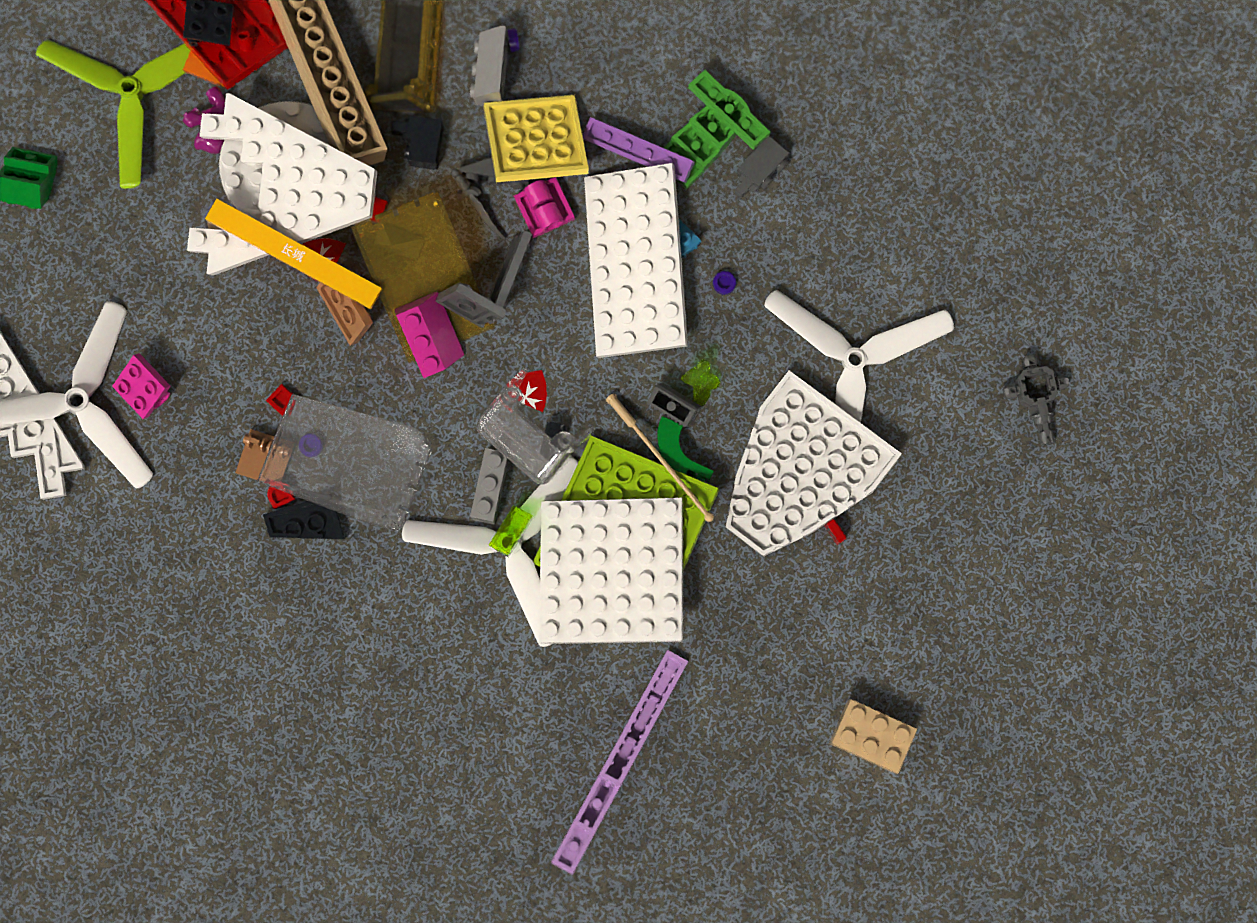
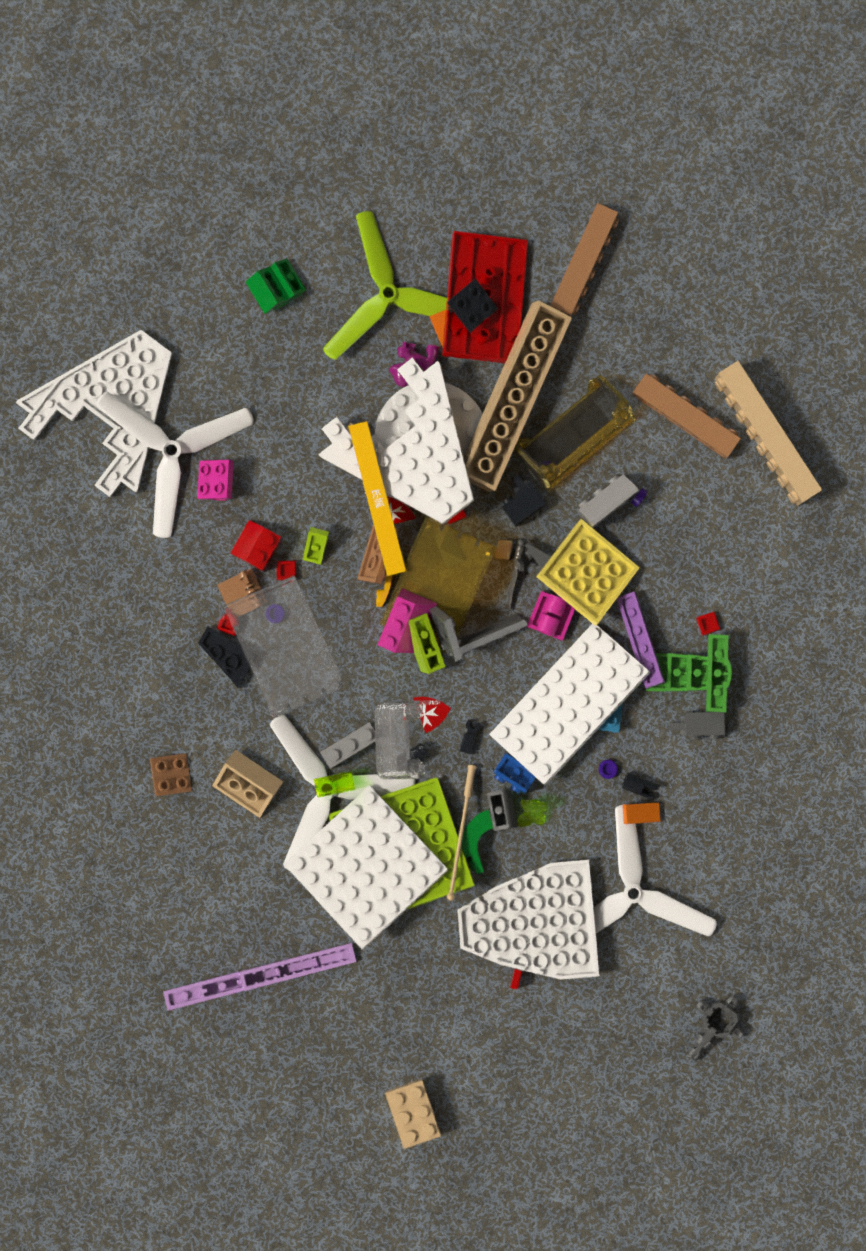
camera: 50 degrees right, 5 degrees up
(235, 405) = (256, 545): none -> red slope
(285, 352) = (315, 545): none -> lime slope
(363, 672) = (170, 774): none -> medium nougat hinge
(384, 334) = (383, 594): none -> yellow slope
(436, 610) = (247, 783): none -> tan slope
(448, 195) = (504, 550): none -> dark tan slope
(463, 335) = (425, 645): none -> lime slope
(583, 377) = (469, 739): none -> black bar
(651, 366) = (514, 773): none -> blue bracket
(678, 83) = (708, 623): none -> red tile
(761, 269) = (635, 785): none -> black hinge
(790, 287) = (641, 813): none -> orange tile

